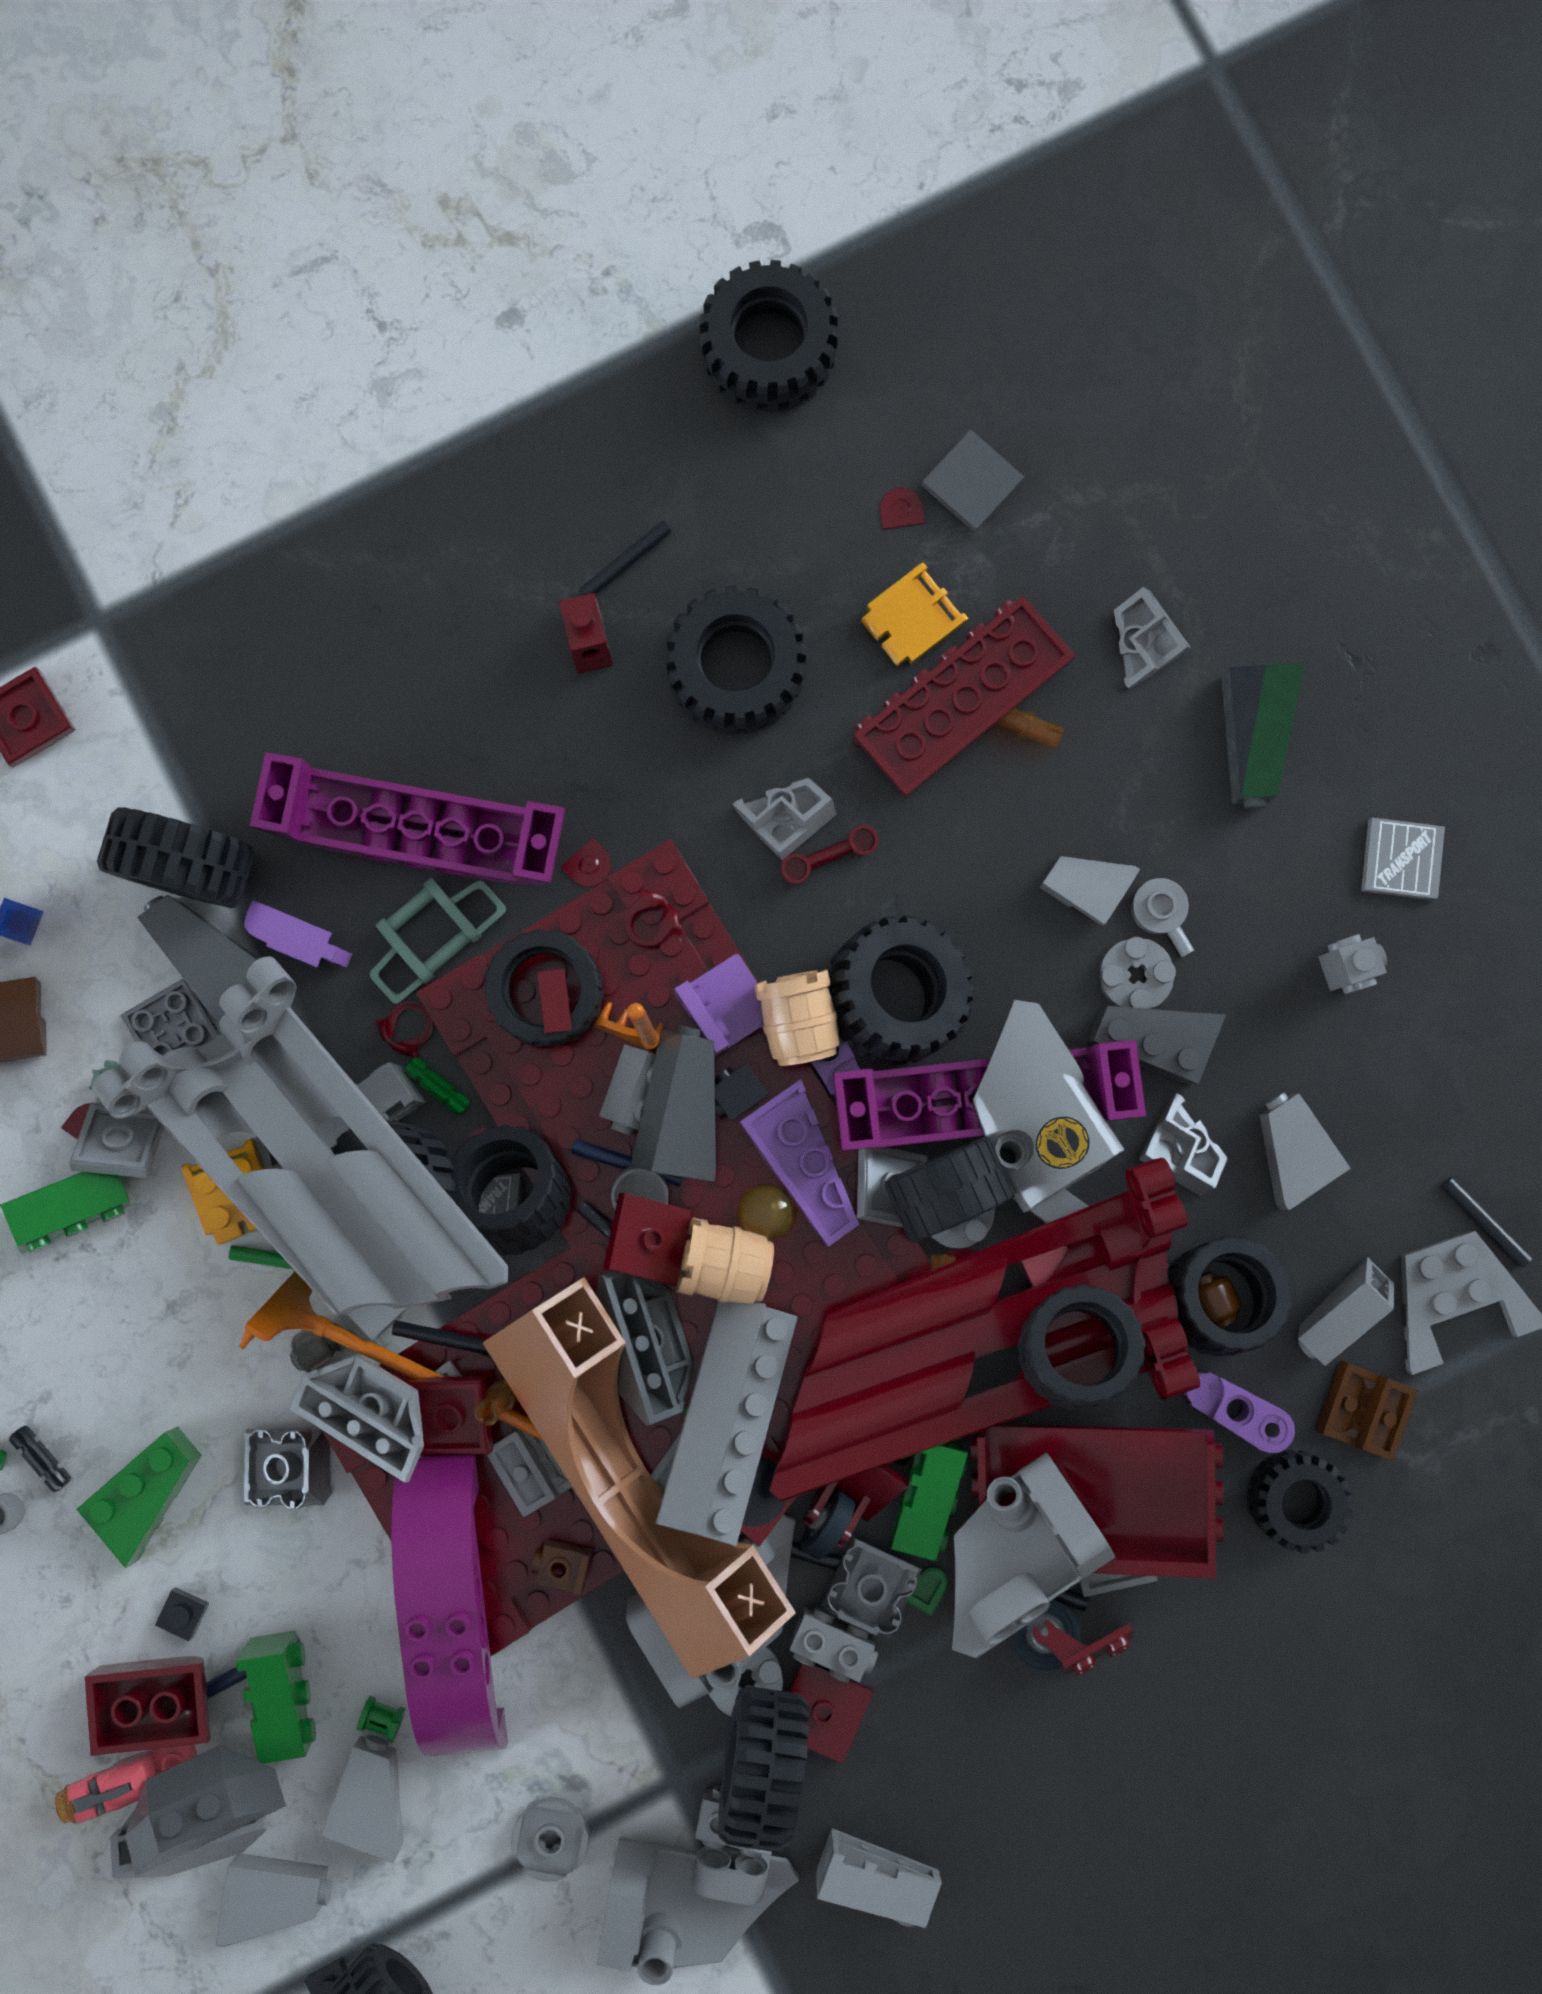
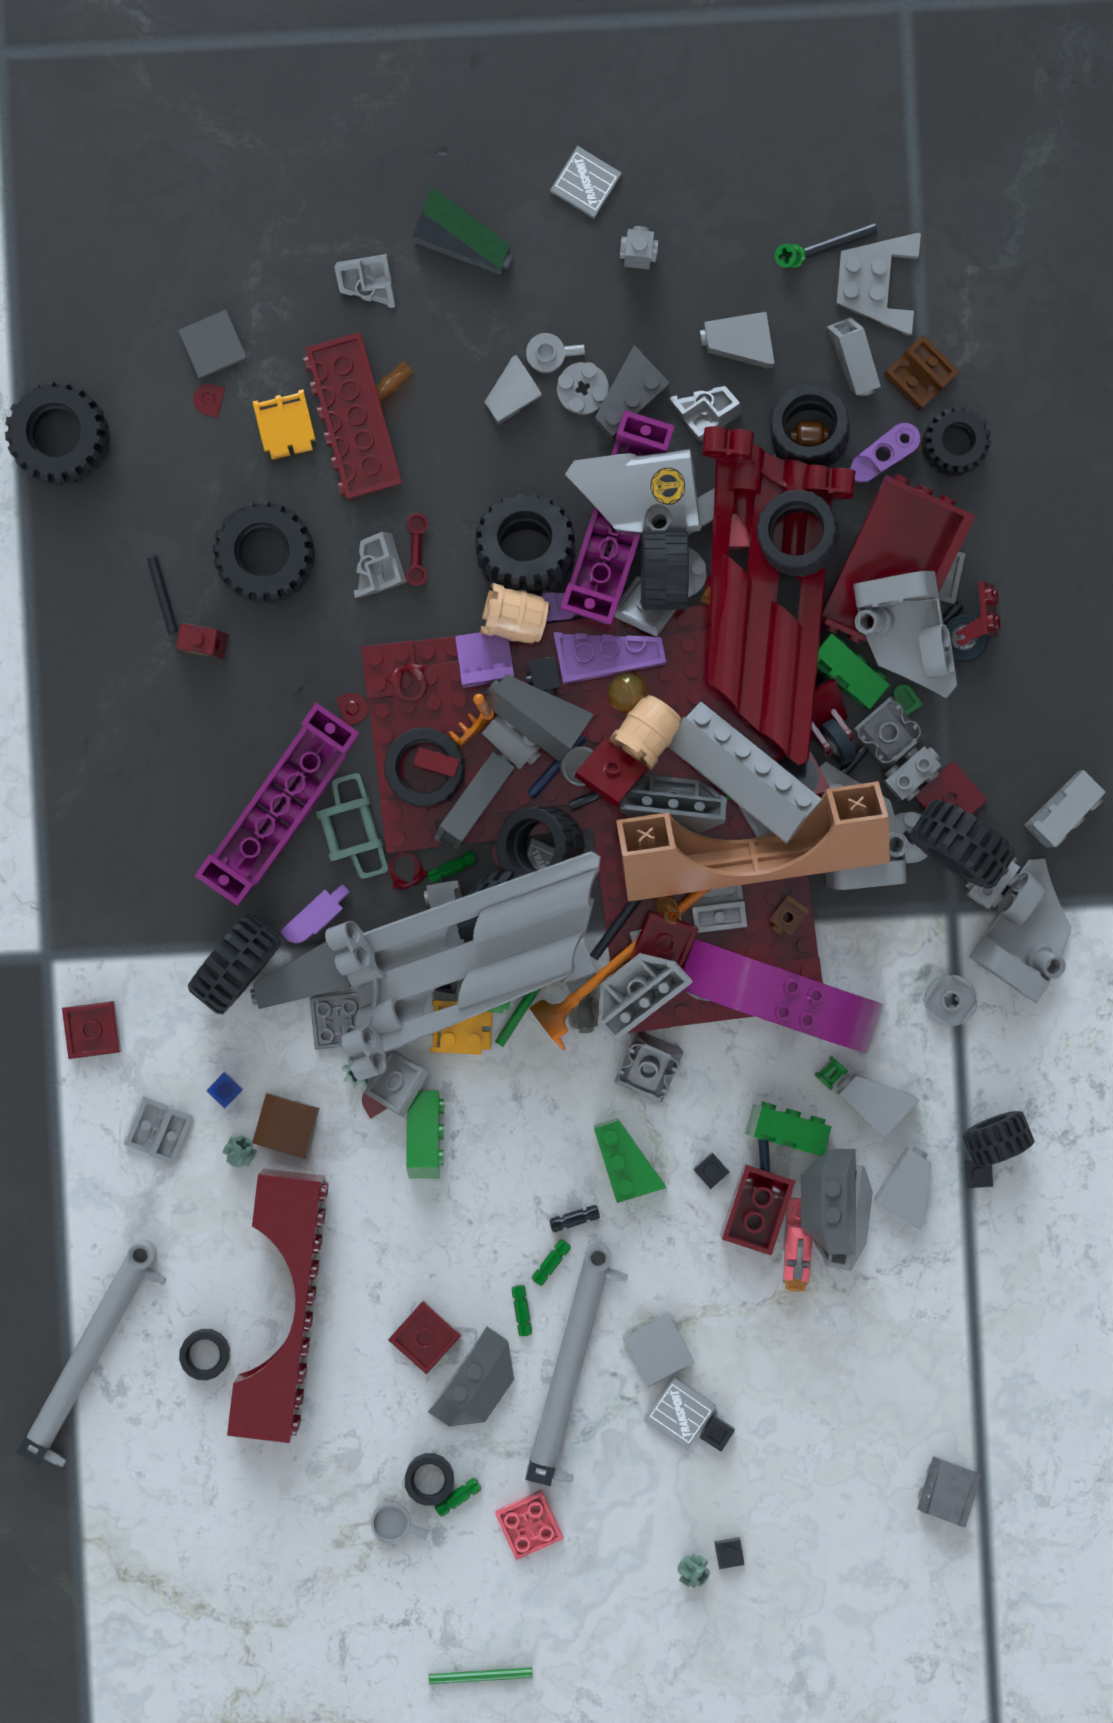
camera: 70 degrees left, 5 degrees up
(530, 1075) = (474, 802): none -> dark grey slope
(1441, 1157) = (787, 249): none -> green bush

